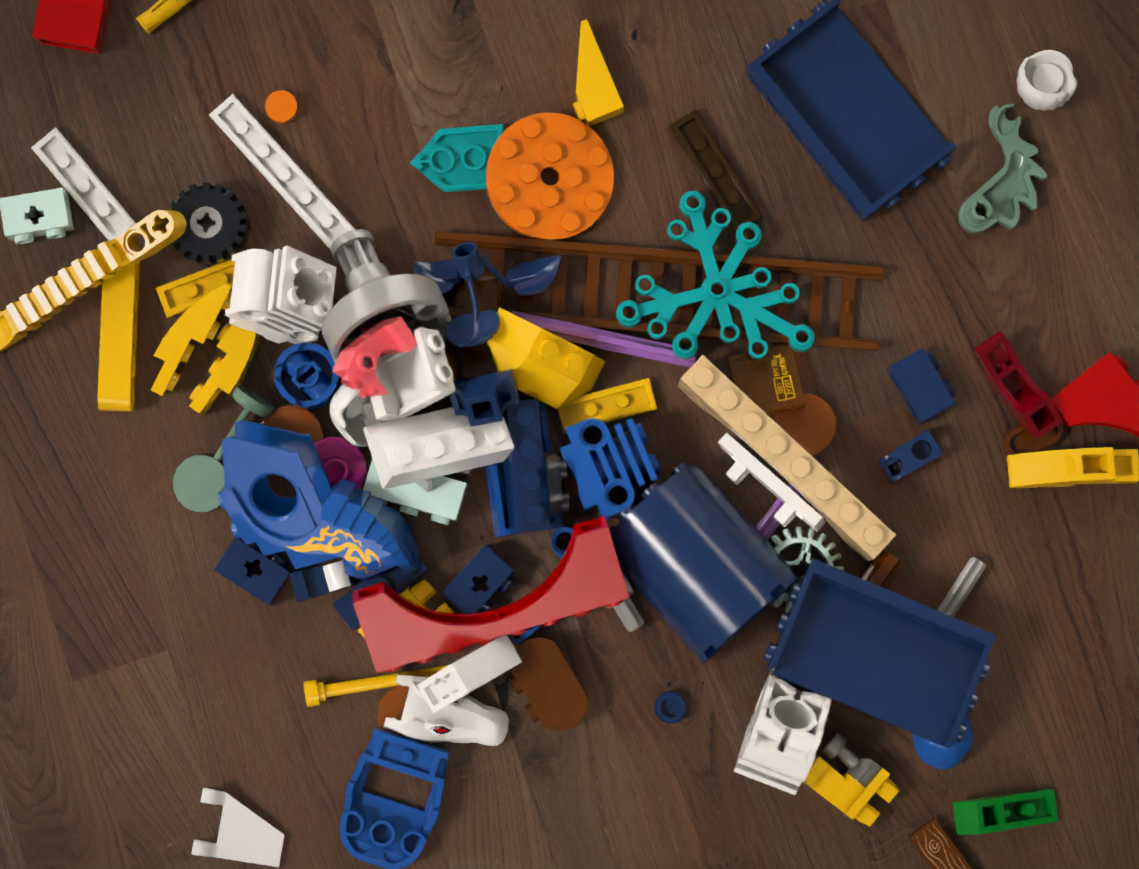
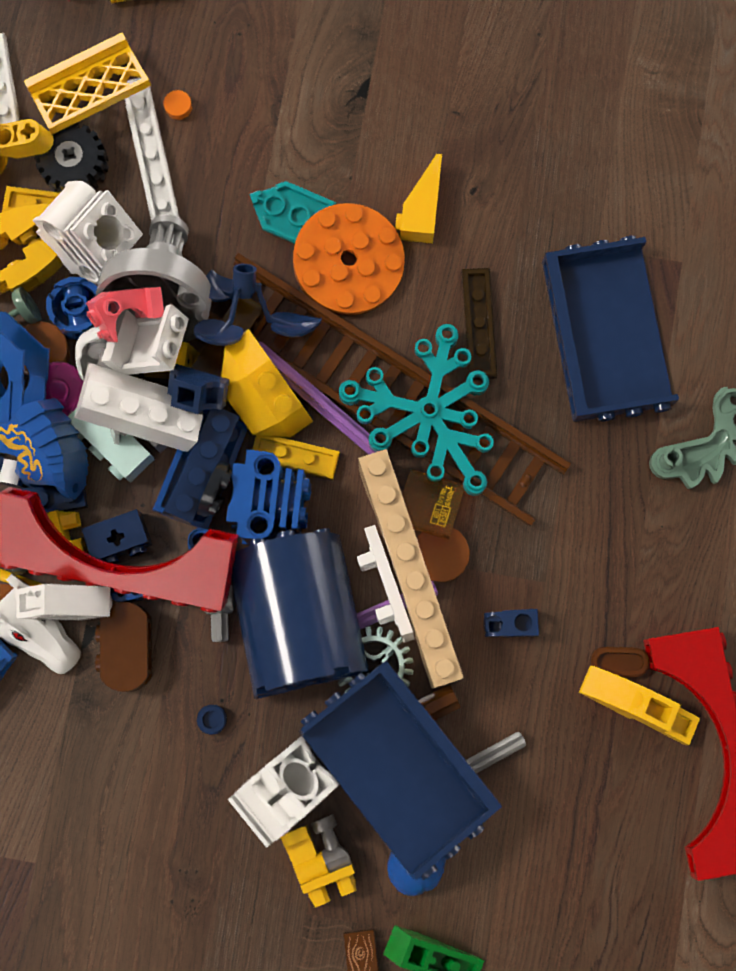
camera: 30 degrees right, 5 degrees down
(164, 127) = (81, 72): none -> yellow fence
(921, 385) = (551, 572): dark blue brick -> none
(1015, 387) = (626, 614): dark red arch -> none

